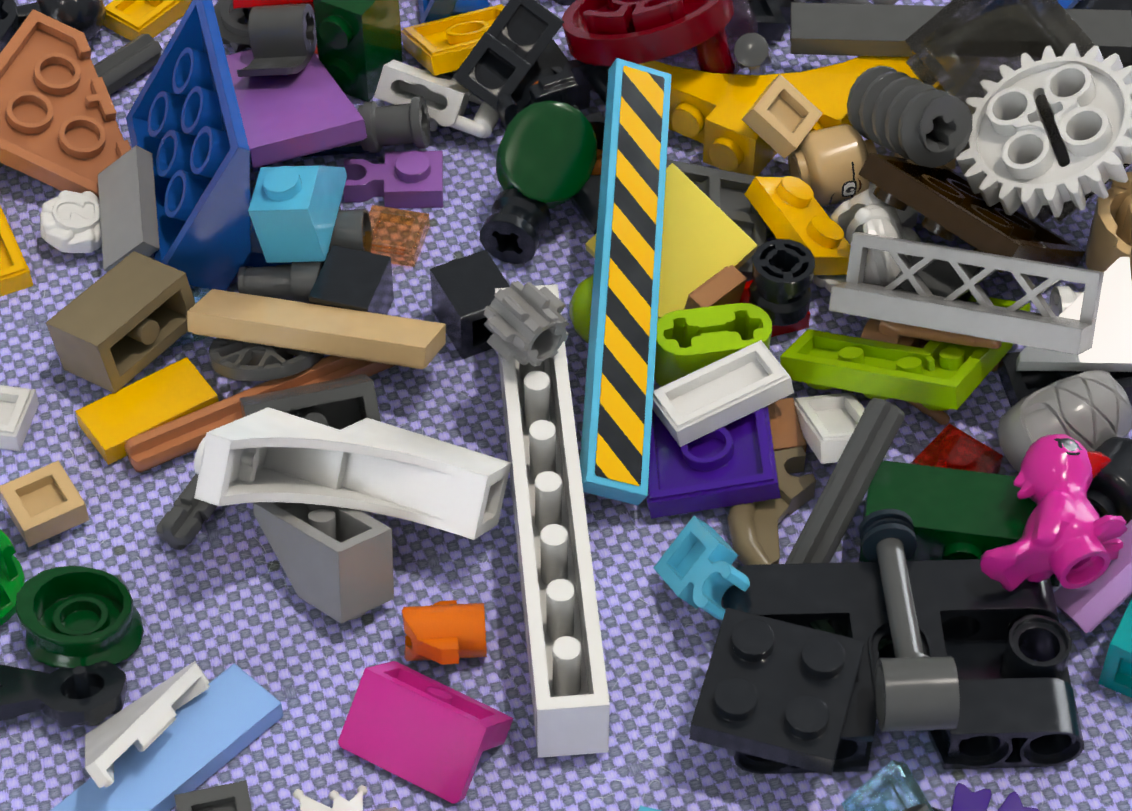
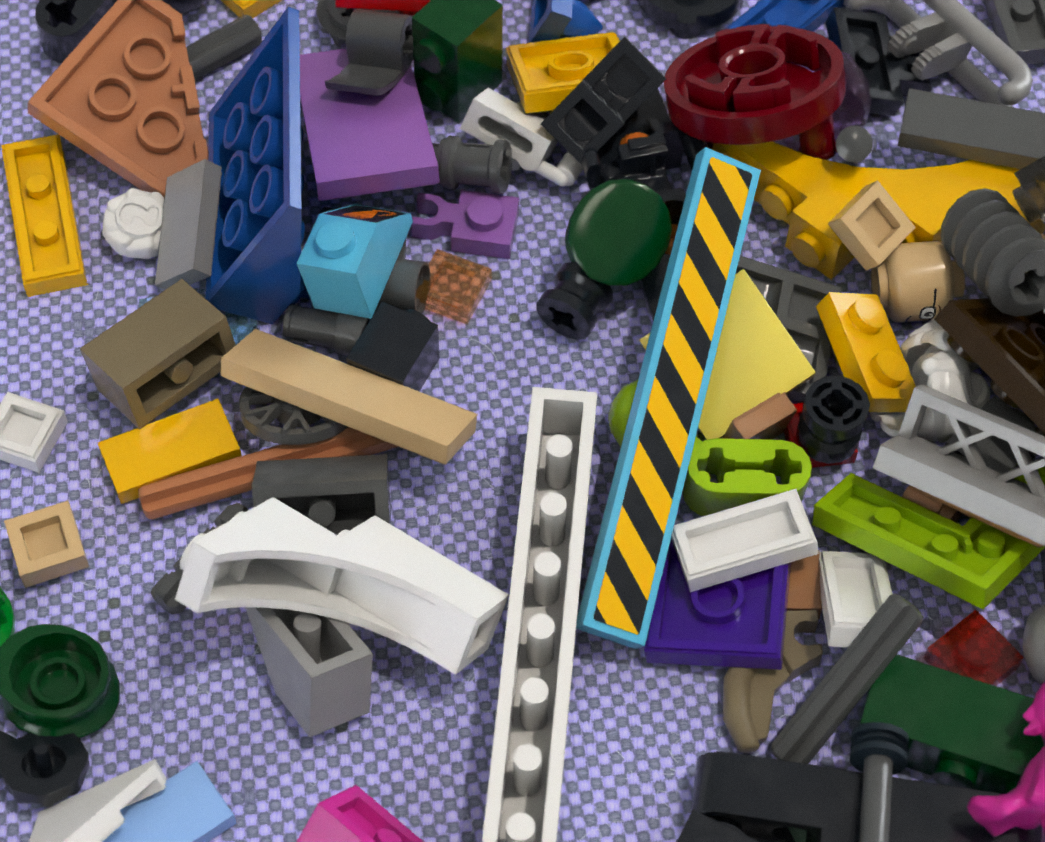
camera: 10 degrees right, 10 degrees up
(444, 632) = (411, 763): orange piece -> none
(460, 297) = (505, 377): black brick -> none
(526, 323) = (551, 445): light grey gear -> none
(700, 567) = (677, 741): medium azure plate -> none

